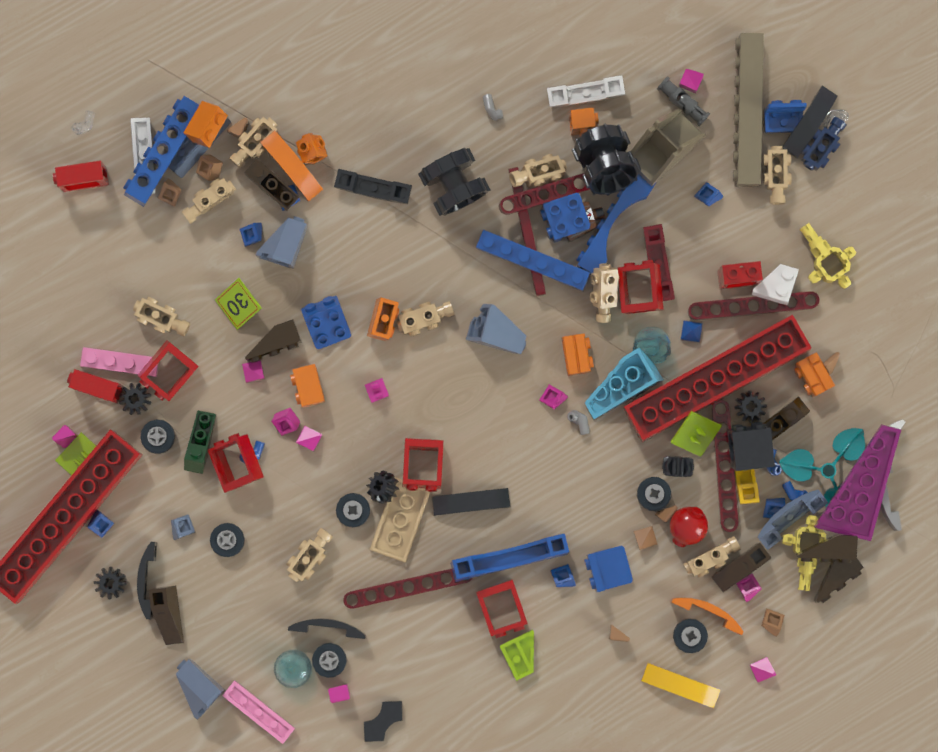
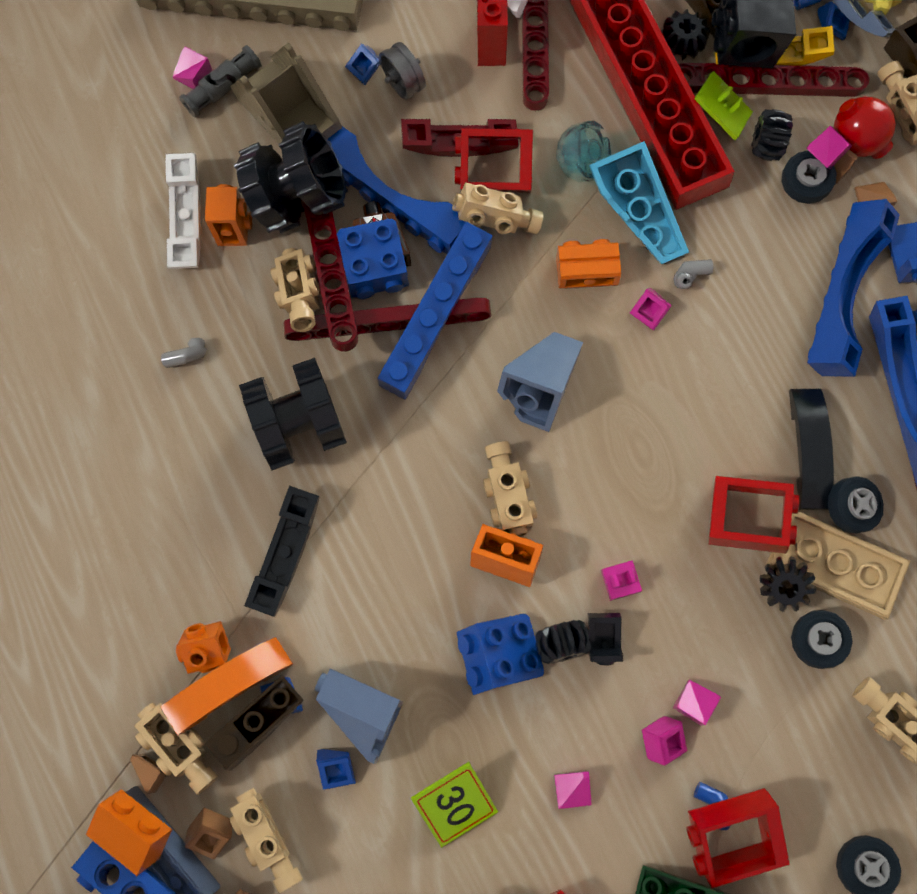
camera: 80 degrees left, 10 degrees down
(278, 338) = (521, 737): dark brown slope -> none
(308, 386) = (609, 693): orange brick -> none
(335, 357) = (563, 641): none -> black gear
(340, 382) = (605, 638): none -> black bracket
(436, 534) = (863, 513): none -> black wheel
(612, 529) = (866, 234): none -> blue arch
(669, 501) = (829, 147): none -> dark pink slope
(691, 331) = (564, 106): blue slope -> none
(699, 220) = (402, 70): none -> flat silver wheel

